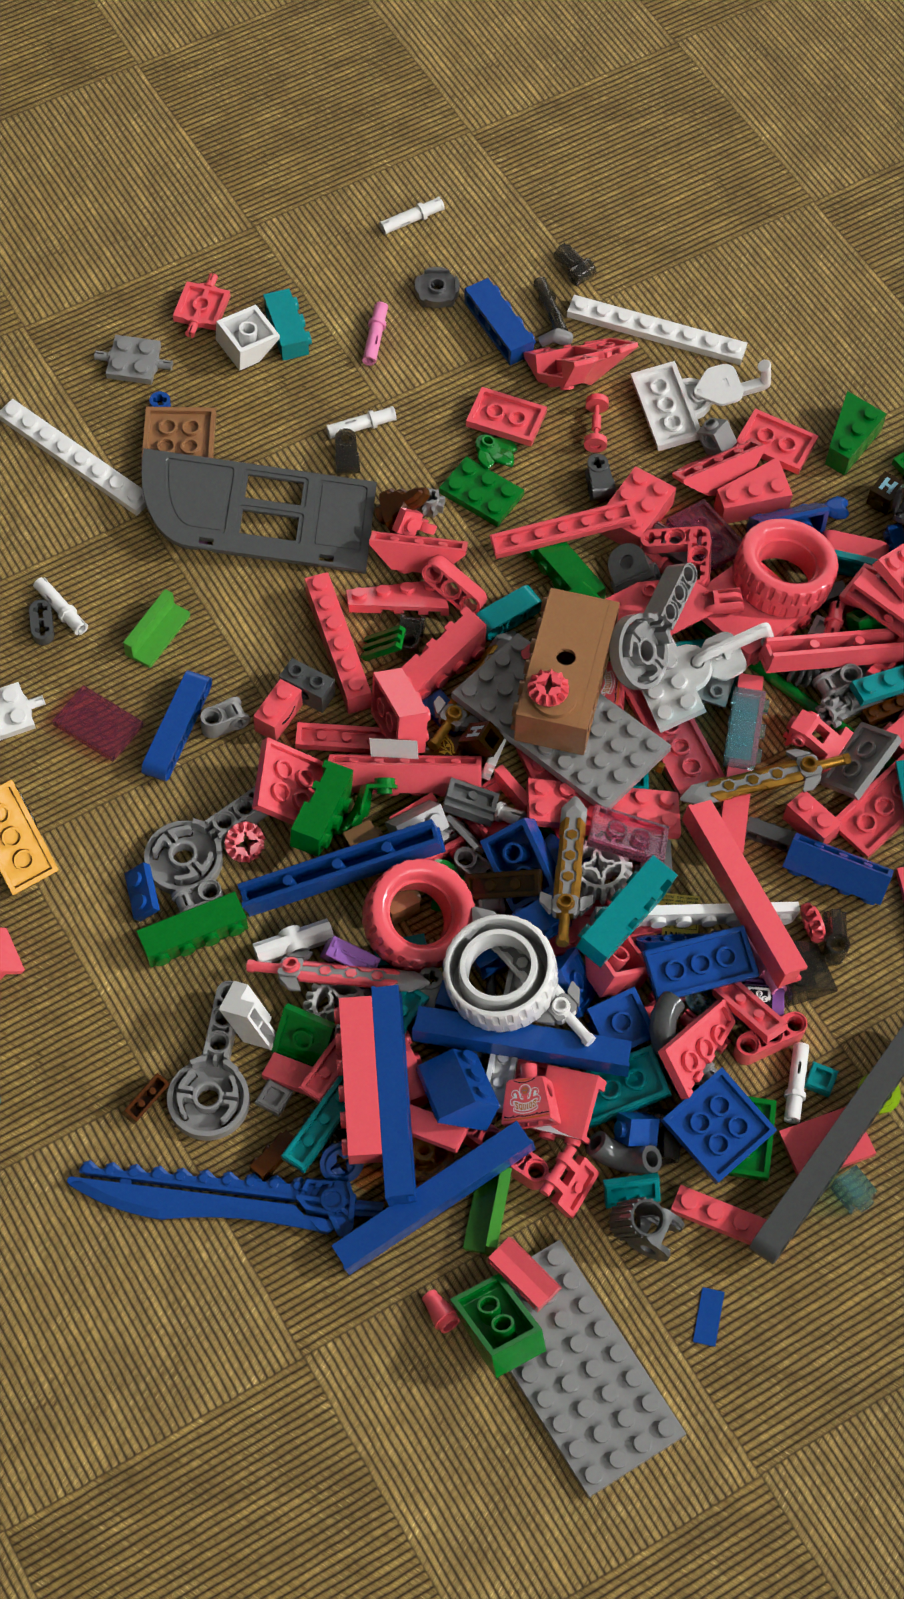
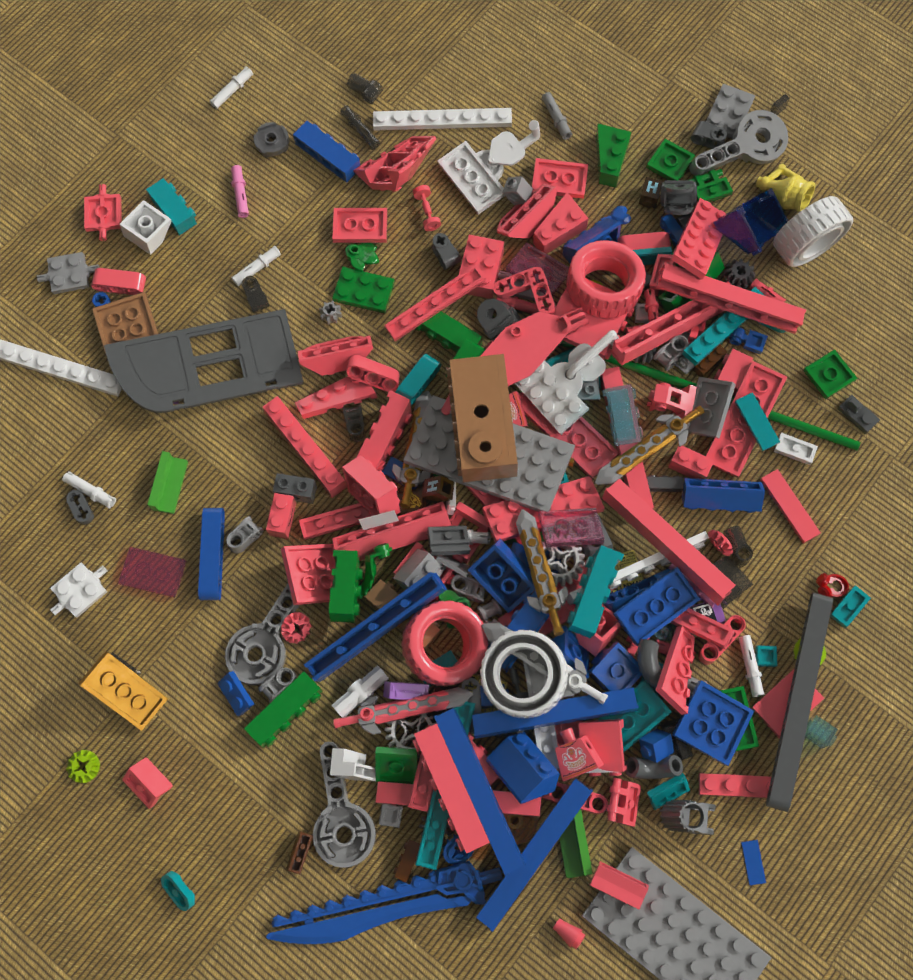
camera: 15 degrees left, 10 degrees up
(189, 387) = (118, 281): none -> coral beam
(383, 639) = (337, 433): green tile -> none
(392, 500) = (309, 324): reddish brown rock -> none
(410, 521) = (322, 333): coral plate -> none
(499, 1325) = (615, 932): green slope -> none
(505, 884) = (497, 596): dark brown tile -> none
(557, 336) = (373, 149): light grey arm -> none
(557, 693) = (472, 448): coral gear -> none
(651, 630) = (528, 373): light grey beam -> none
(802, 375) = (560, 121): none -> light grey pin
(832, 711) = (676, 377): light grey gear -> none

